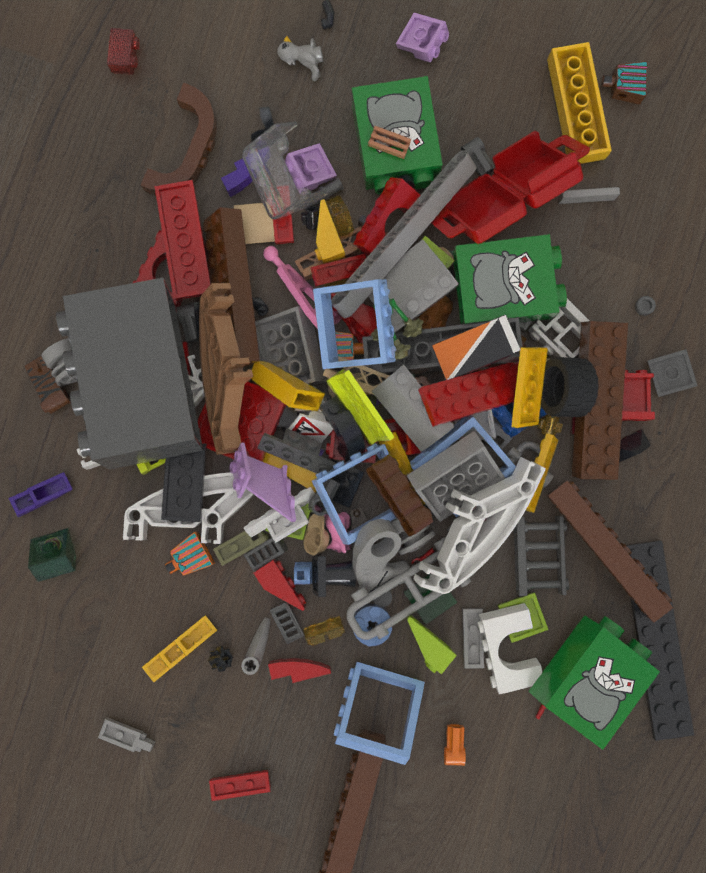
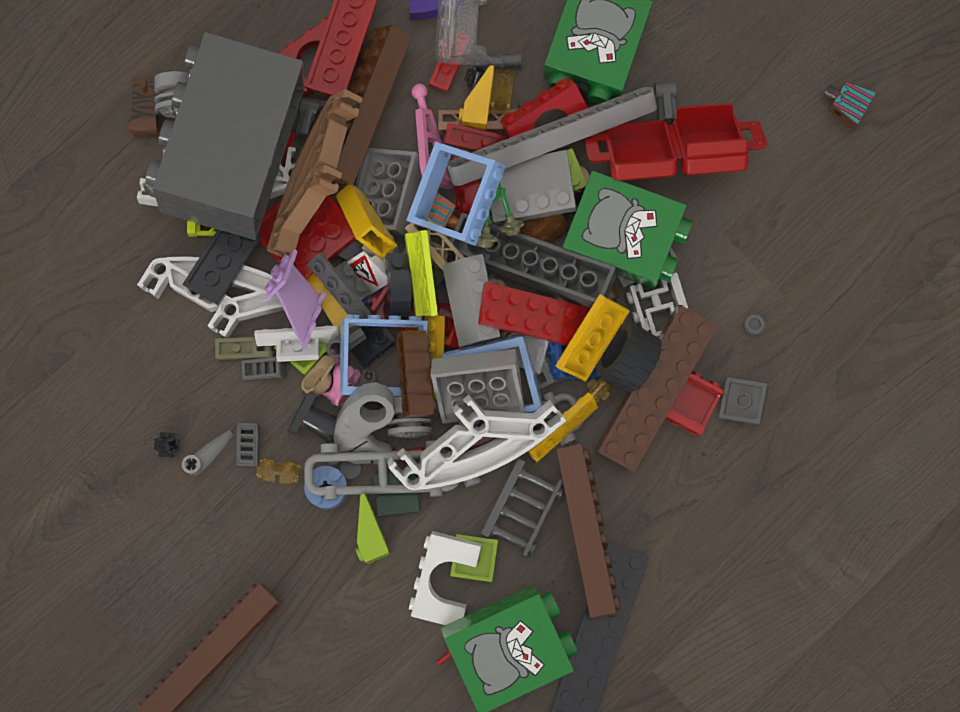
camera: 30 degrees right, 5 degrees down
(40, 494) = (83, 204): dark purple slope -> none
(52, 555) = (63, 266): clear green slope -> none
(125, 736) = (38, 470): light grey hinge -> none
(179, 648) = (133, 415): yellow slope -> none
(190, 556) = (190, 334): torso -> none
(240, 785) = (120, 573): red plate -> none
(256, 223) = (420, 56): tan slope -> none
(260, 306) = (382, 133): black arm -> none
(275, 582) = (256, 396): red slope -> none
(298, 669) = (233, 493): red slope -> none
(303, 573) = (287, 406): medium blue leg -> none
(309, 167) = (499, 30): lavender plate -> none
(370, 747) = (264, 593): light blue window -> none
(377, 130) = (571, 31): nougat tile -> none
(454, 750) = (341, 649): orange piece -> none
(472, 645) = (409, 563): light grey plate -> none
(476, 348) = (560, 275): tile -> none
(579, 99) = (790, 98): yellow brick -> none
(589, 195) = (754, 191): light grey tile -> none
(633, 445) = (667, 450): black slope -> none

